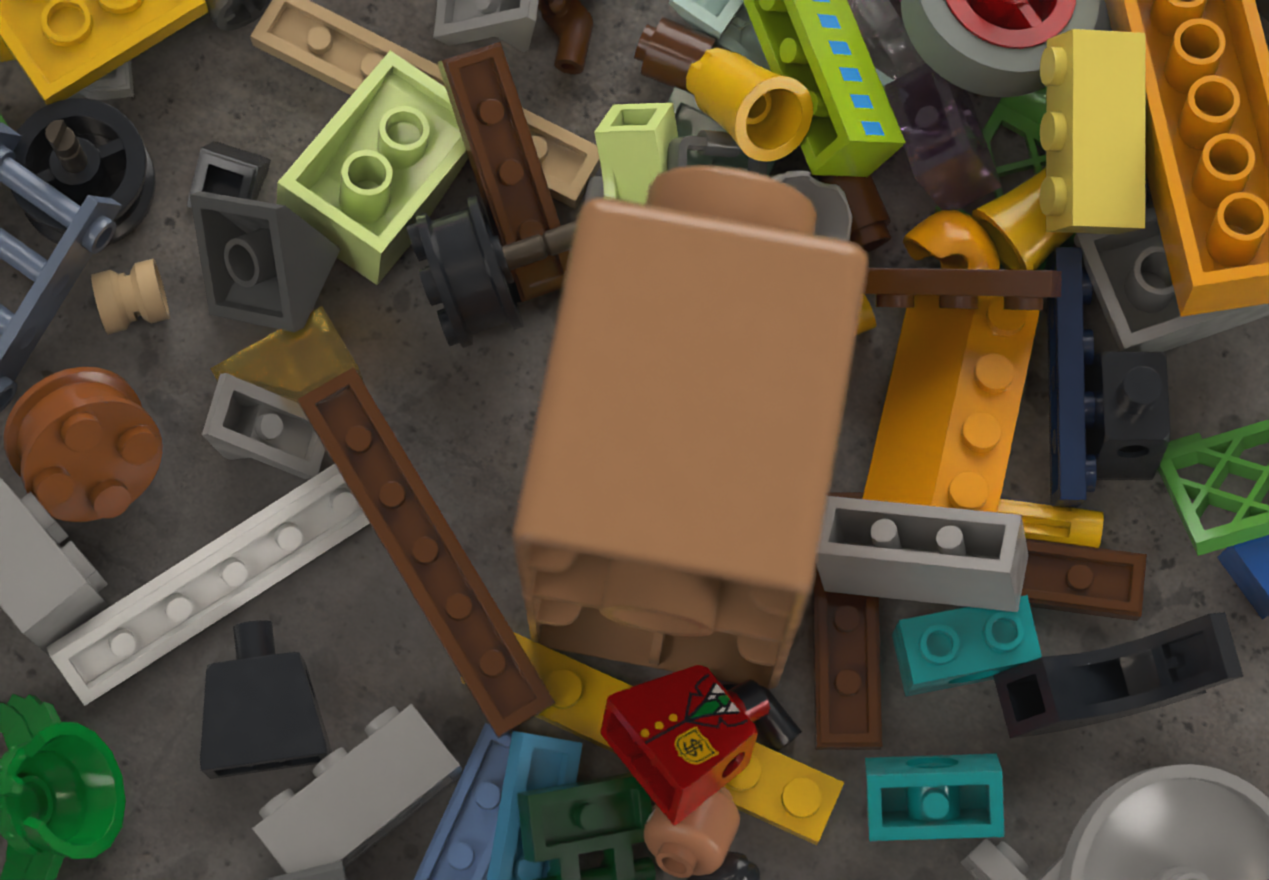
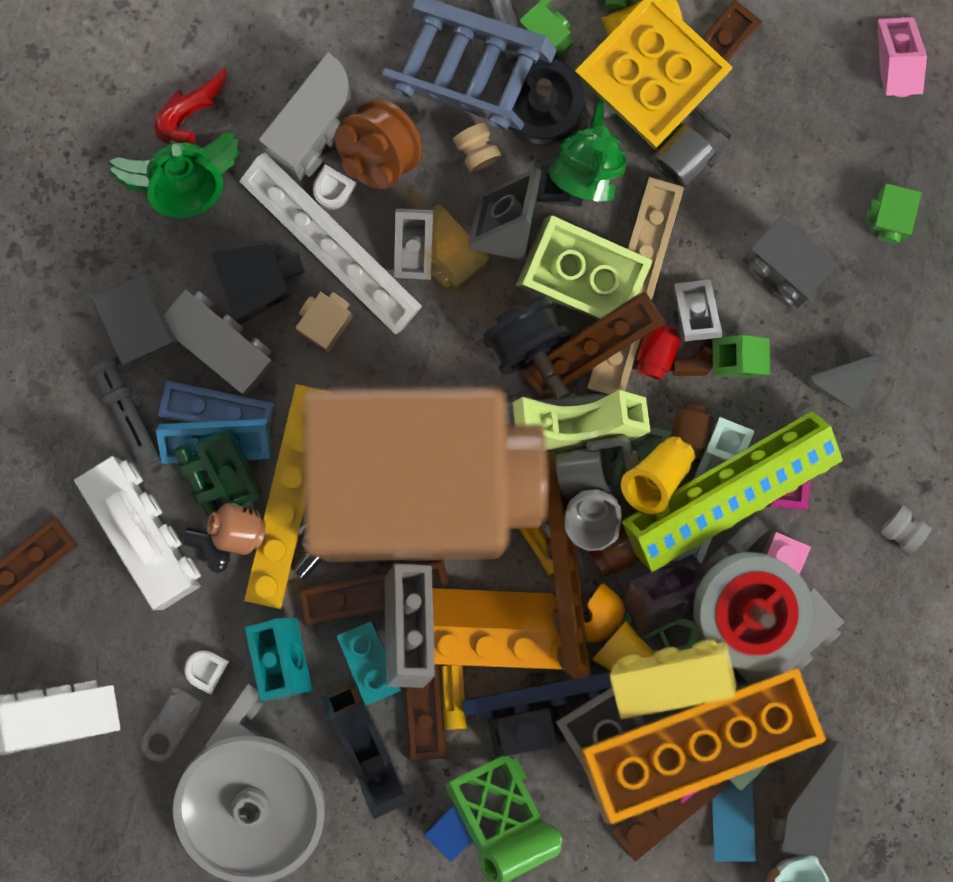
camera: 80 degrees right, 10 degrees up
(136, 551) = (332, 188): none -> white tile
(197, 109) = (589, 161): none -> green helmet
(362, 606) = (324, 319): none -> tan brick
(426, 552) = (358, 344): reddish brown plate -> none
(545, 82) = (657, 352): none -> red brick
(684, 735) = (276, 512): red torso -> none

